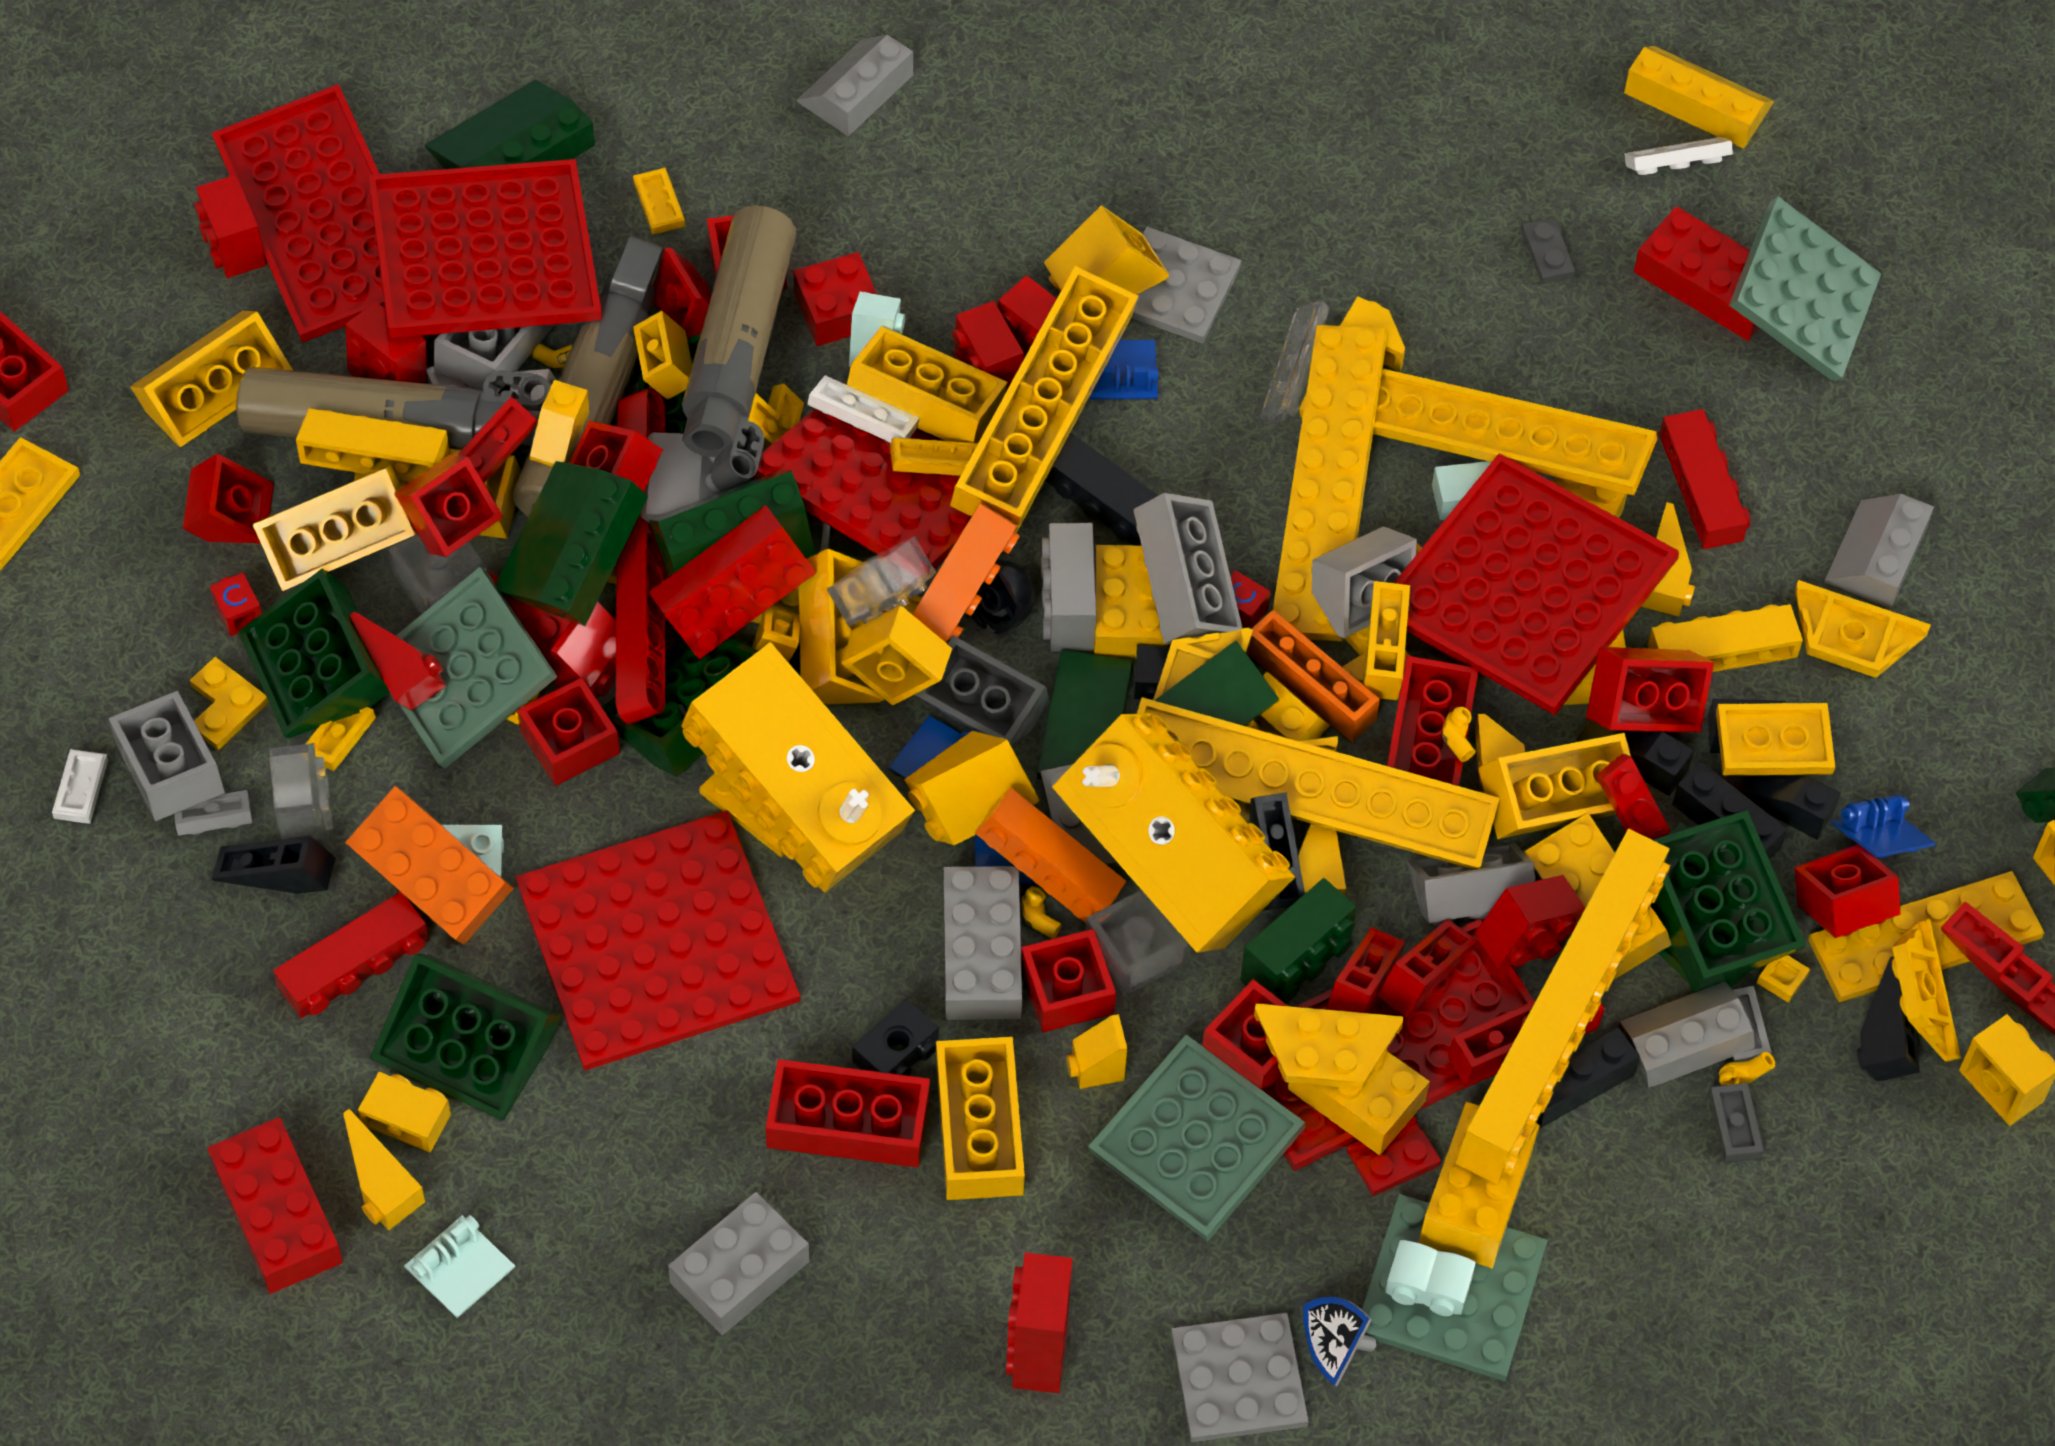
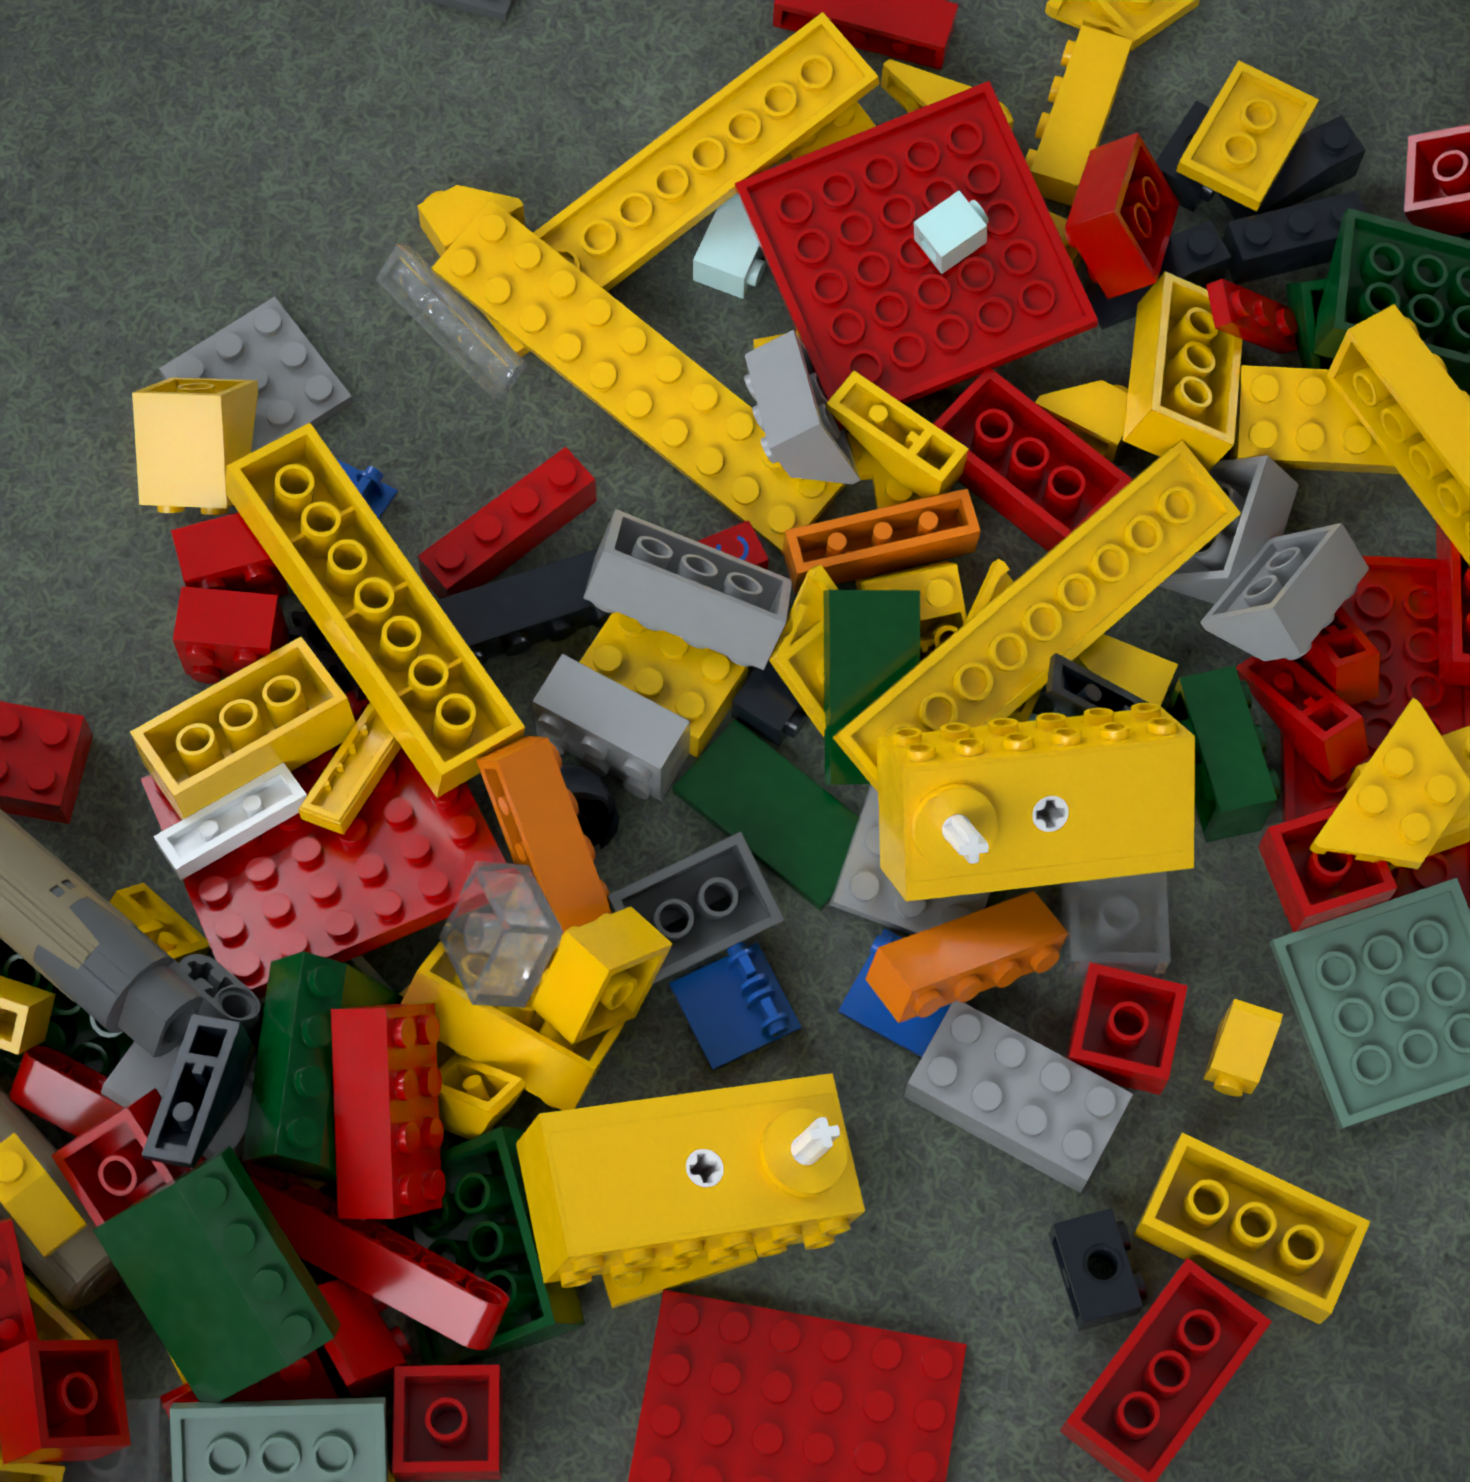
camera: 60 degrees left, 10 degrees up
(676, 467) = (200, 1090): none -> black slope
(869, 315) = (106, 744): light aqua brick -> none
(964, 784) = (816, 992): yellow slope -> none
(1034, 913) = (1011, 1015): yellow arm -> none
(1174, 465) = (509, 526): none -> red brick
(1433, 917) = (1288, 593): none -> light grey slope
(1455, 731) = (1063, 438): yellow arm -> none
(1530, 921) = (1337, 487): red brick -> none
(1548, 584) = (951, 231): none -> light aqua brick
(1881, 826) = (1399, 105): blue hinge -> none

